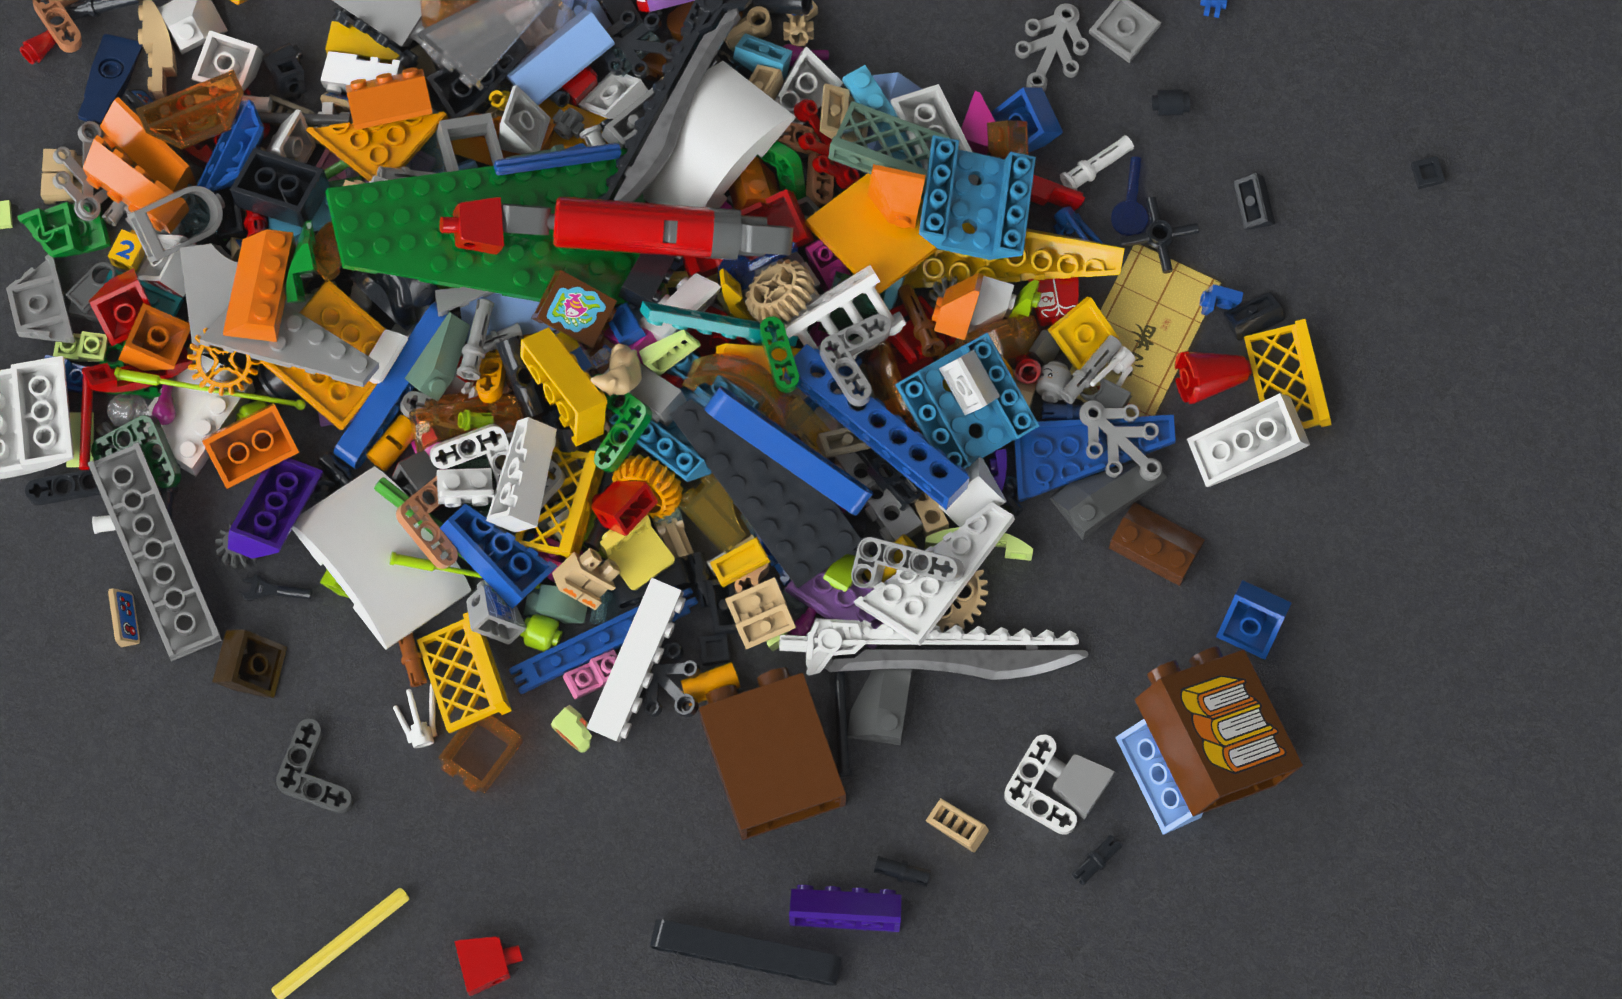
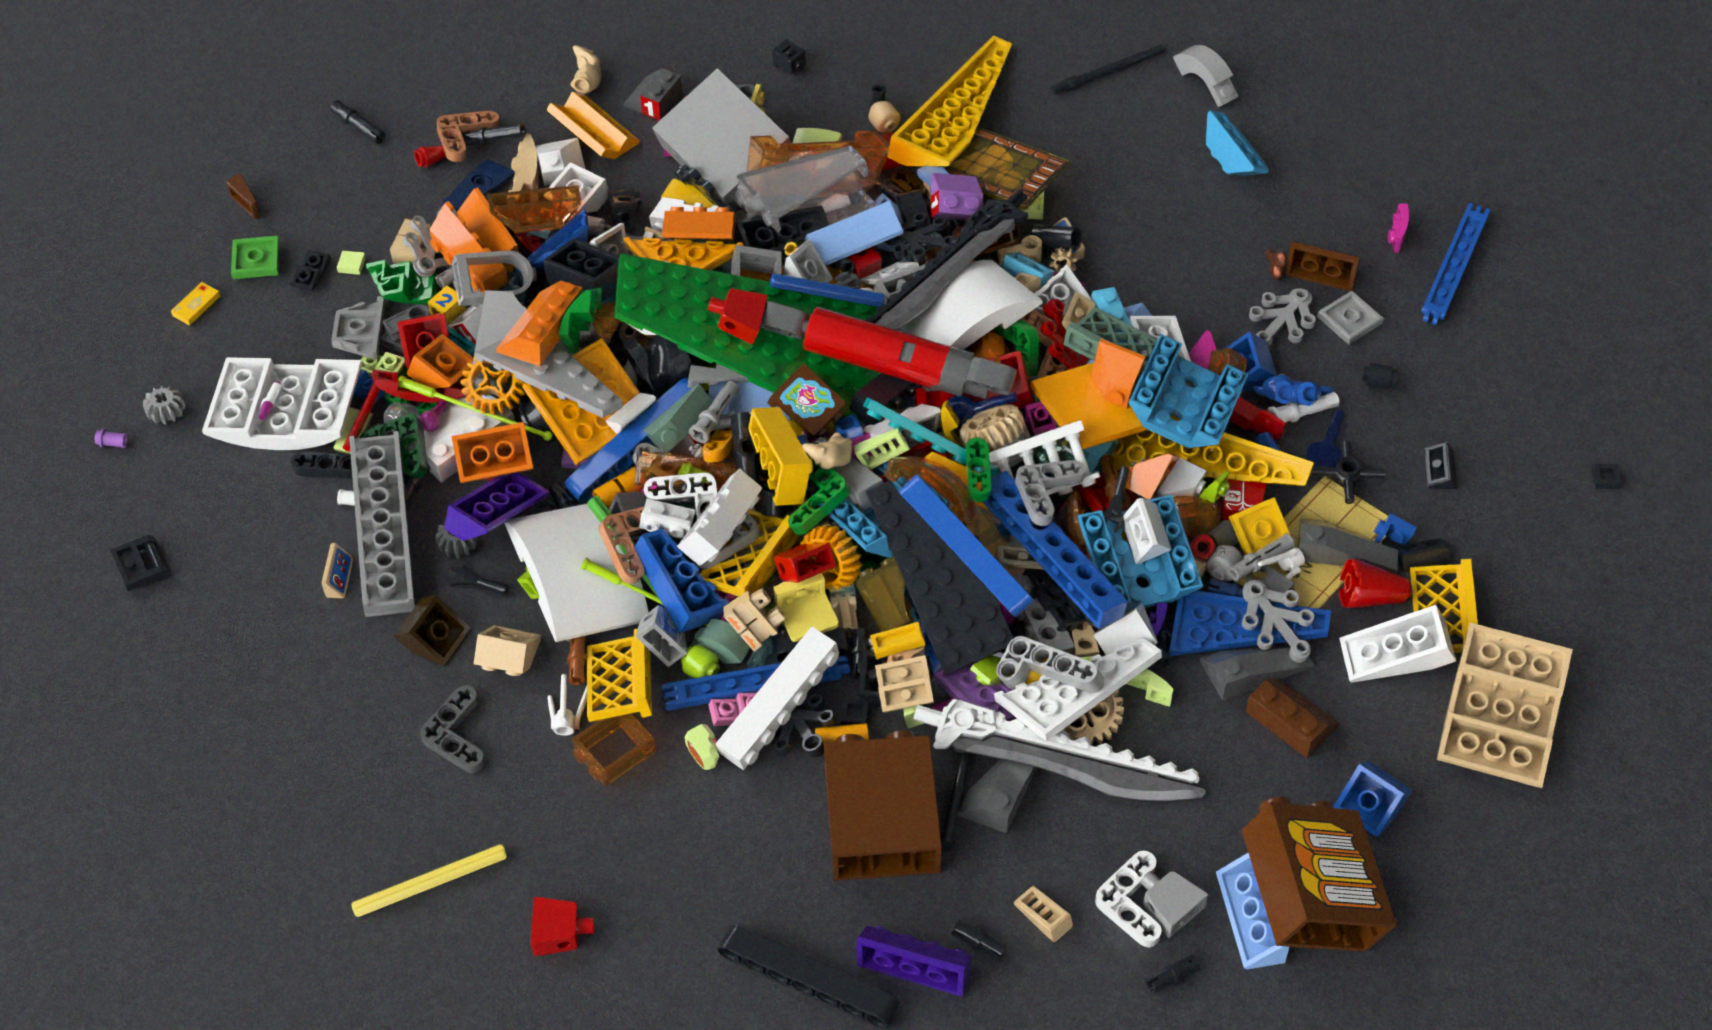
camera: 15 degrees right, 20 degrees down
(335, 665) = (506, 650): none -> tan slope
(931, 364) = (1114, 511): none -> black piece
(1078, 152) = (1284, 390): none -> blue animal
(1166, 329) = (1334, 545): none -> dark grey wedge
(1365, 485) = (1504, 705): none -> tan slope

